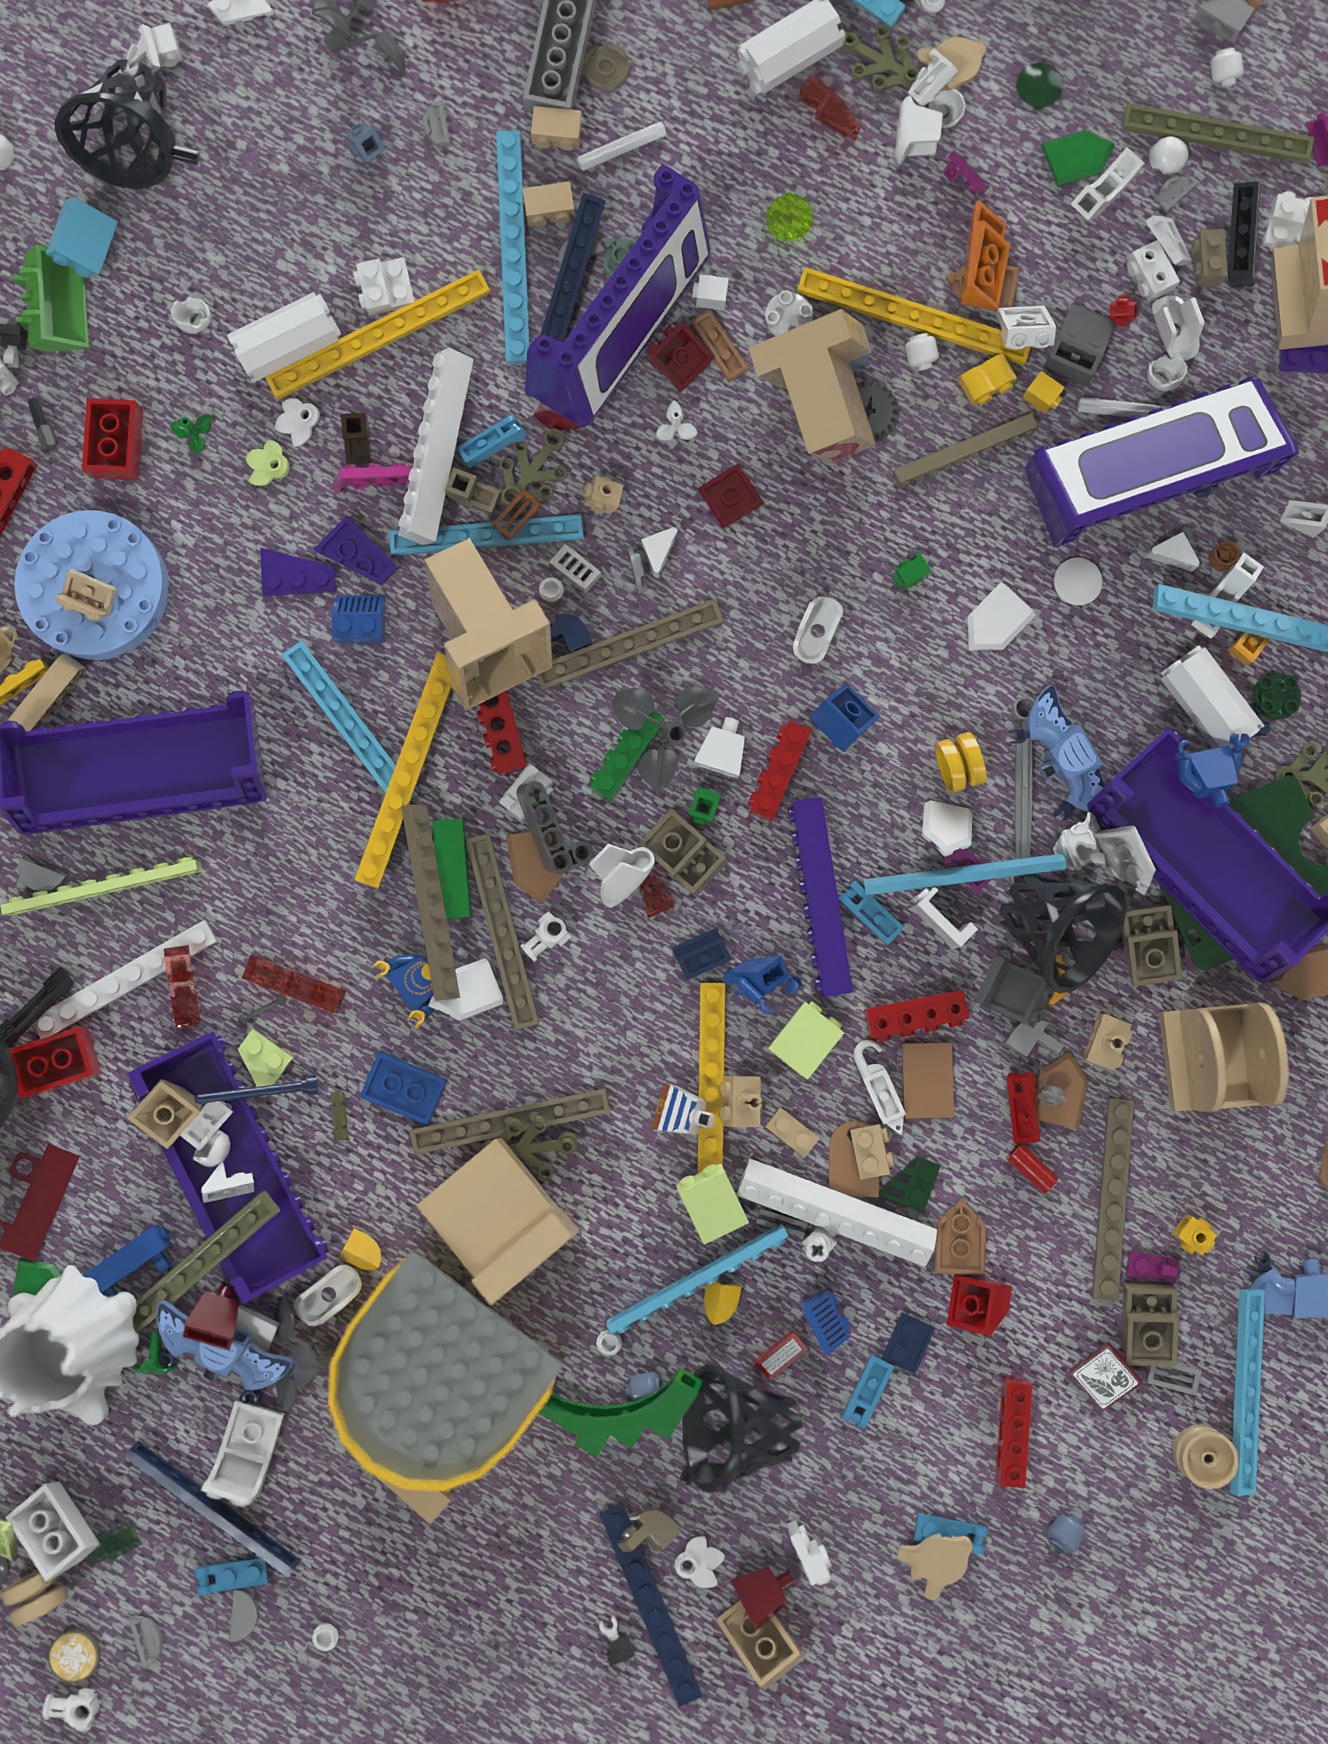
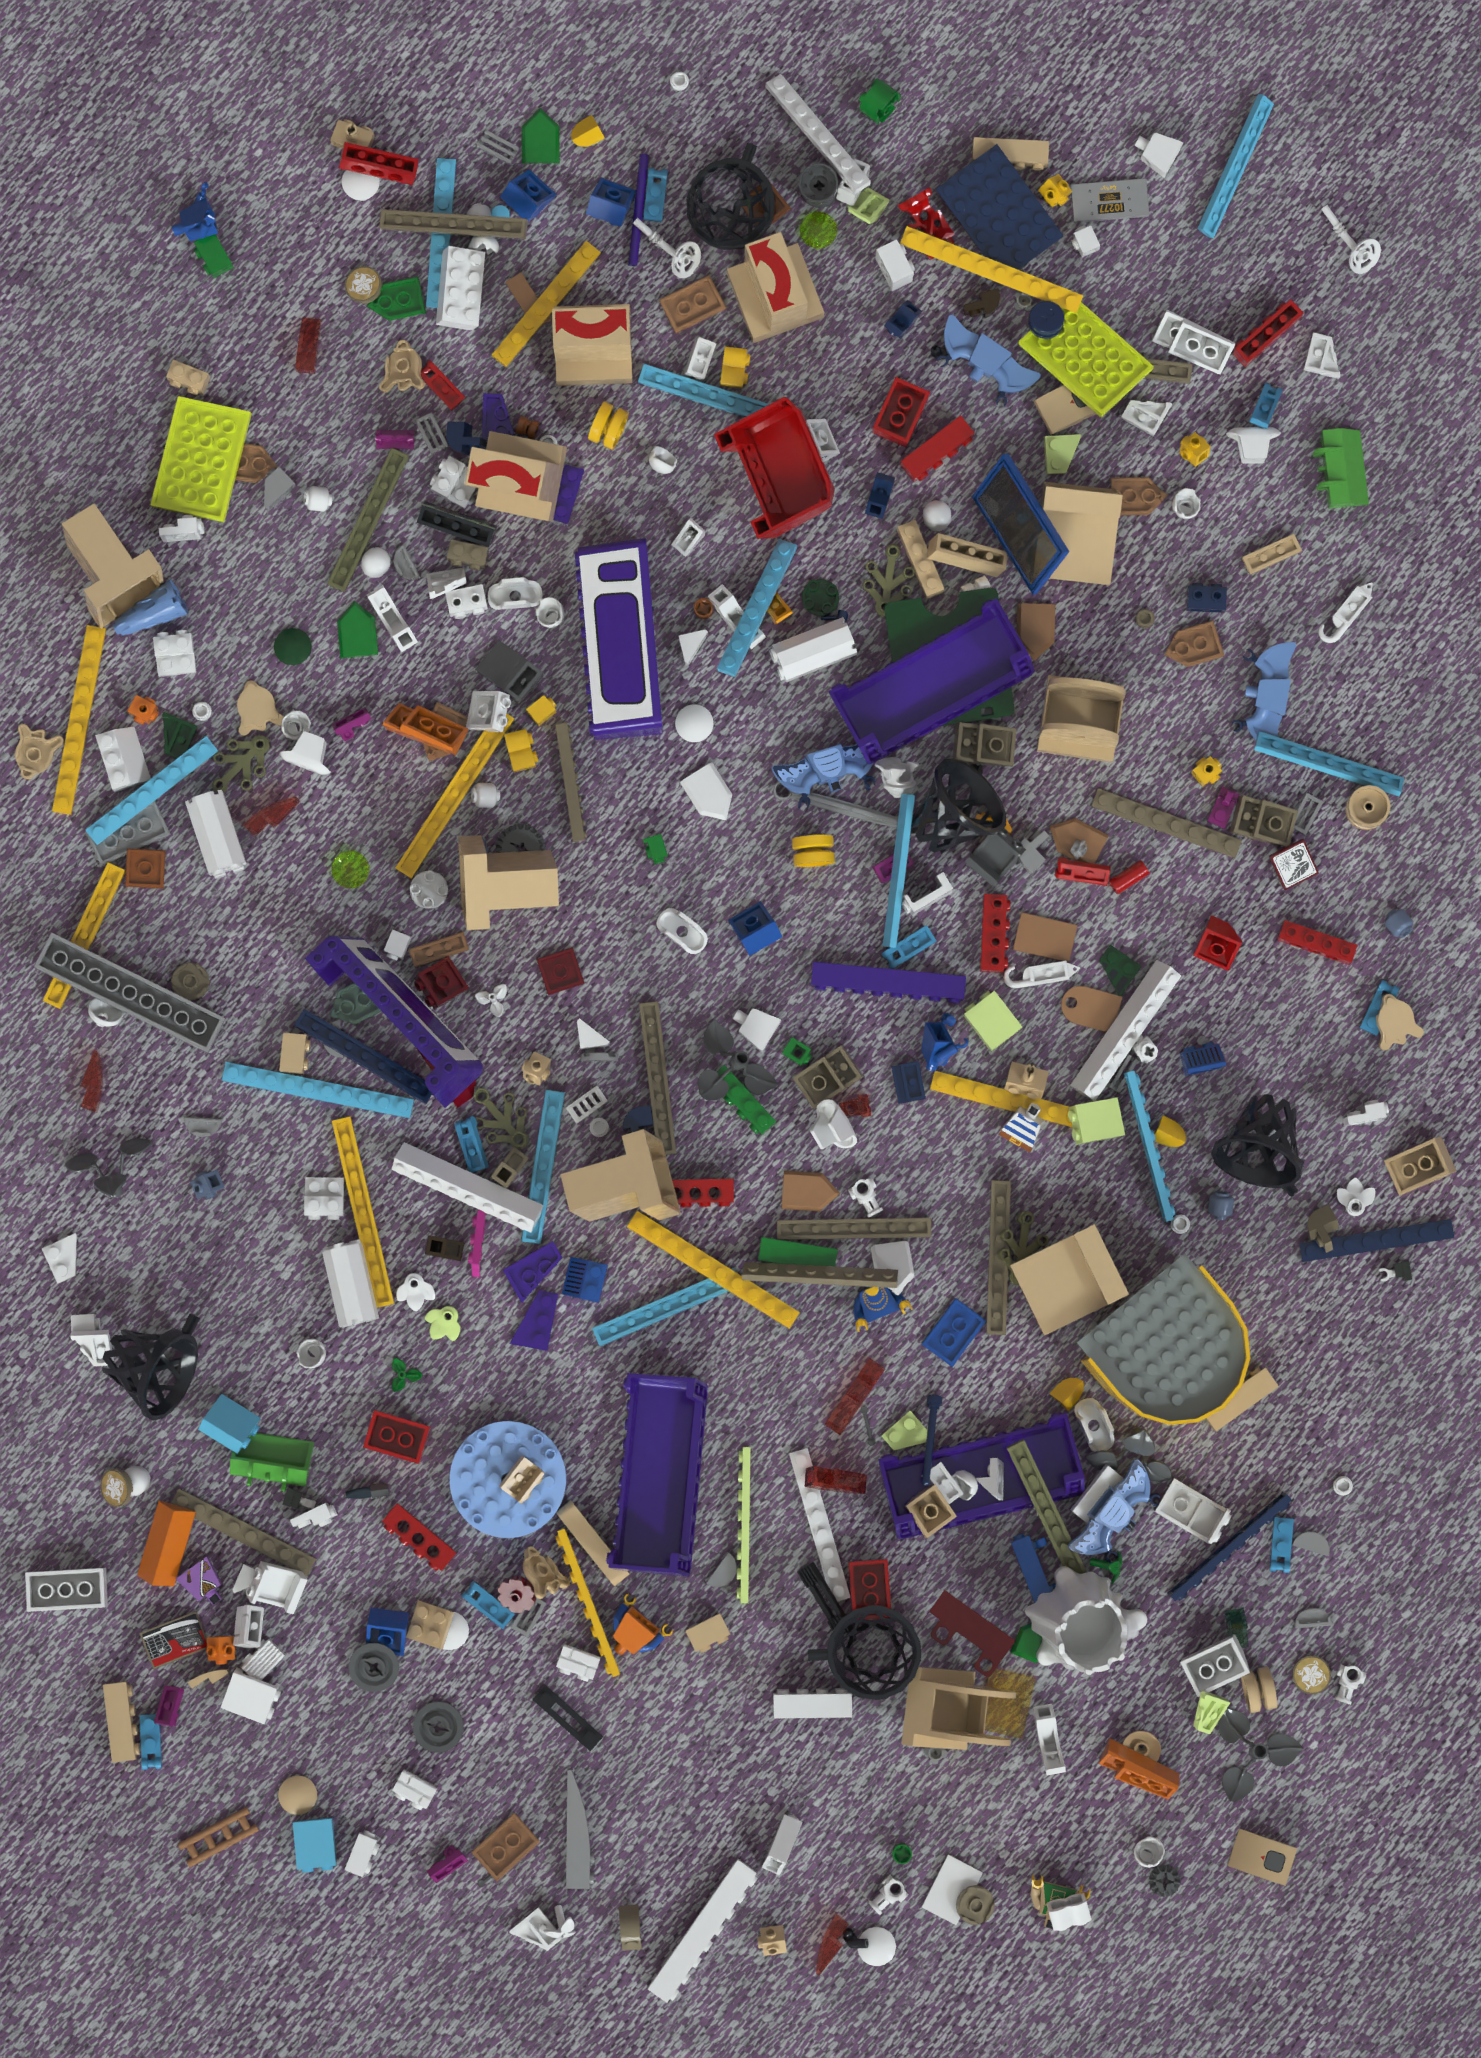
camera: 75 degrees left, 0 degrees up
(213, 1319) = (1091, 1506): dark red torso -> none
(339, 1115) = (962, 1385): olive axle -> none
(502, 530) = (537, 1142): dark orange tile -> none
(529, 774) = (753, 1184): white brick -> none
(550, 825) = (762, 1178): dark grey beam -> none
(556, 128) = (233, 1032): tan brick -> none
(621, 146) = (258, 986): white axle -> none
(625, 1422) = (1240, 1223): green arch -> none
(762, 1593) = (1387, 1155): dark red torso -> none
(780, 1355) = (1220, 1099): slope -> none
(782, 765) = (785, 988): red brick -> none
(792, 1132) = (1058, 1048): tan plate -> none
(868, 1390) = (1261, 1041): dark azure plate -> none
(872, 1151) = (1087, 993): tan bracket -> none
(908, 1343) = (1234, 1002): dark blue plate -> none
(932, 79) = (270, 730): white wing -> none
(947, 826) = (859, 873): white tile -> none
(960, 1242) = (1170, 944): medium nougat tile -> none
(1107, 1042) = (1049, 796): tan brick -> none
(1115, 408) = (568, 651): white axle -> none
(1123, 310) = (492, 632): red gear -> none
(1127, 856) = (915, 745): white tile -> none
(1212, 770) = (868, 667): blue torso -> none

